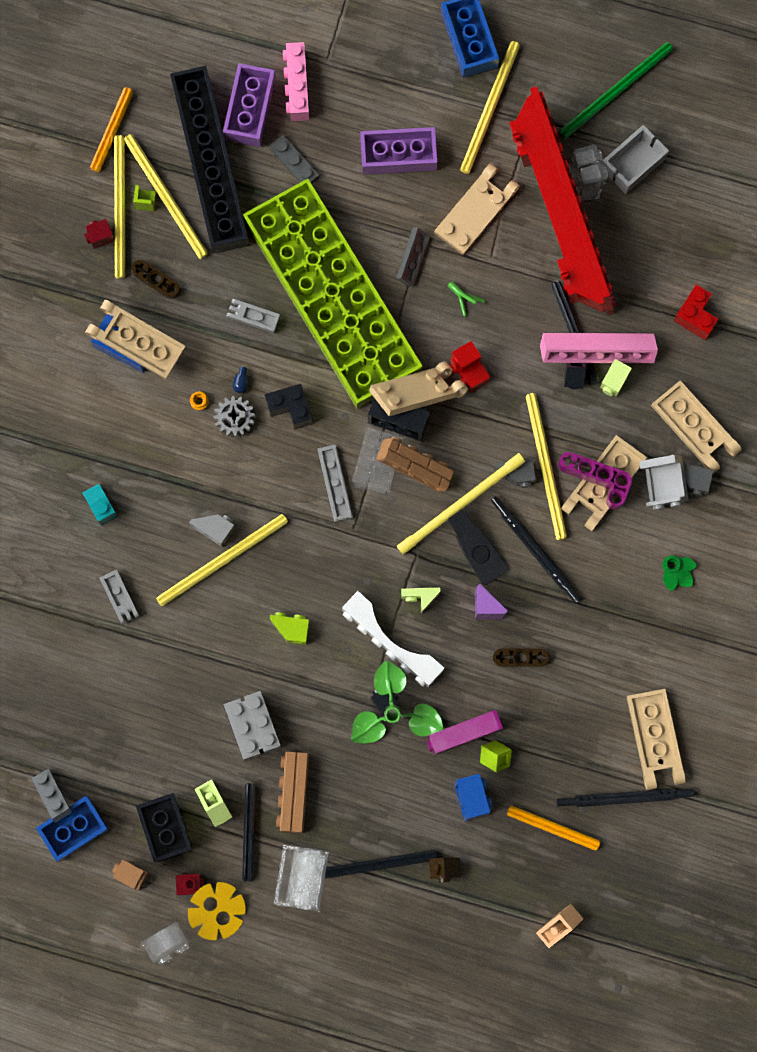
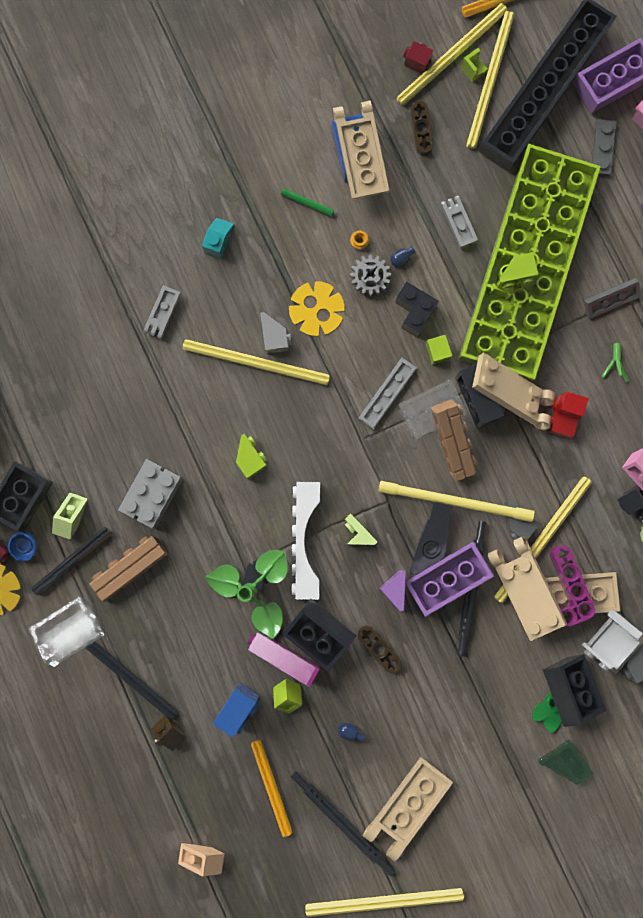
camera: 50 degrees right, 5 degrees up
(133, 414) = (307, 202): none -> green bar
(205, 858) = (23, 546): none -> blue hair
(229, 492) = (321, 293): none -> yellow piece
(332, 305) = (520, 270): none -> lime slope
(336, 416) = (438, 349): none -> lime panel
(471, 690) = (319, 635): none -> black brick
(510, 577) = (431, 586): none -> medium lavender brick
(563, 733) = (350, 732): none -> dark blue cylinder
(573, 509) = (528, 591): none -> tan hinge
(674, 540) = (574, 690): none -> black brick
(709, 817) = (384, 902): none -> light yellow axle
(723, 593) = (567, 762): none -> clear green wing

